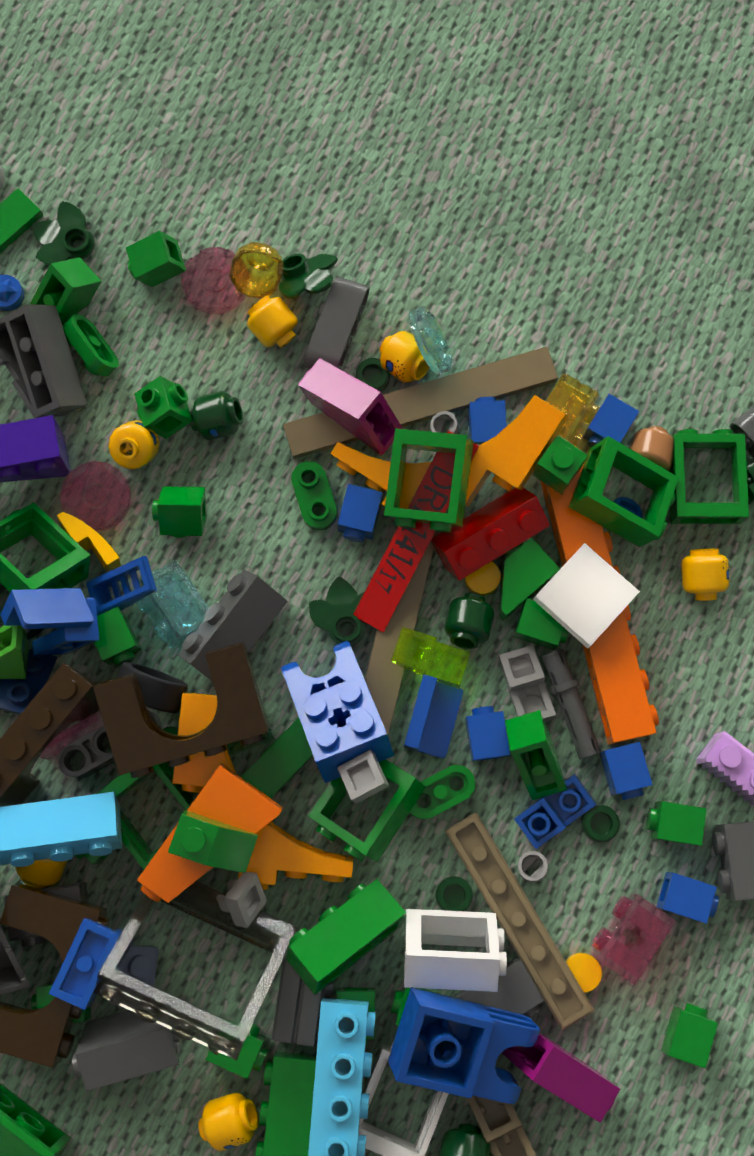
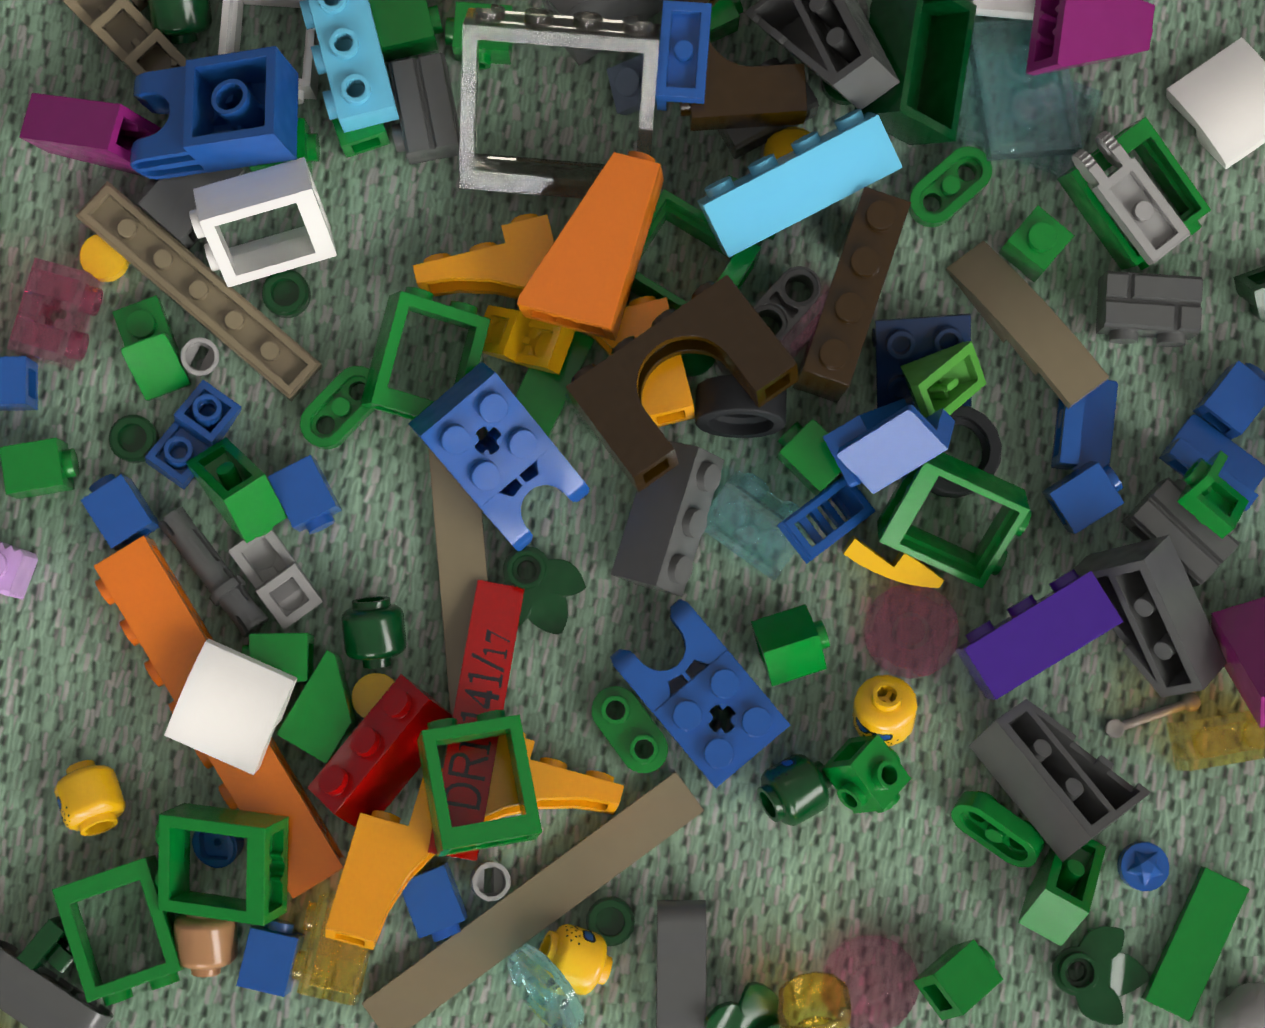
camera: 160 degrees right, 5 degrees up
(212, 842) = (585, 232): green slope -> none
(243, 899) = (530, 192): light grey tile -> none
(255, 504) = (699, 682): none -> blue brick
(272, 322) = (768, 946): yellow head -> none
(288, 792) = (526, 340): none -> yellow slope
(344, 935) = (397, 196): green brick -> none
(351, 404) = (620, 860): magenta slope -> none
(359, 513) = (560, 722): blue brick -> none
(363, 776) = (433, 378): light grey tile -> none
(428, 657) = (407, 568): clear neon green slope -> none
(433, 717) = (380, 496): blue panel -> none
(559, 464) = (315, 866): green brick -> none
(567, 888) = (151, 348): none -> green slope

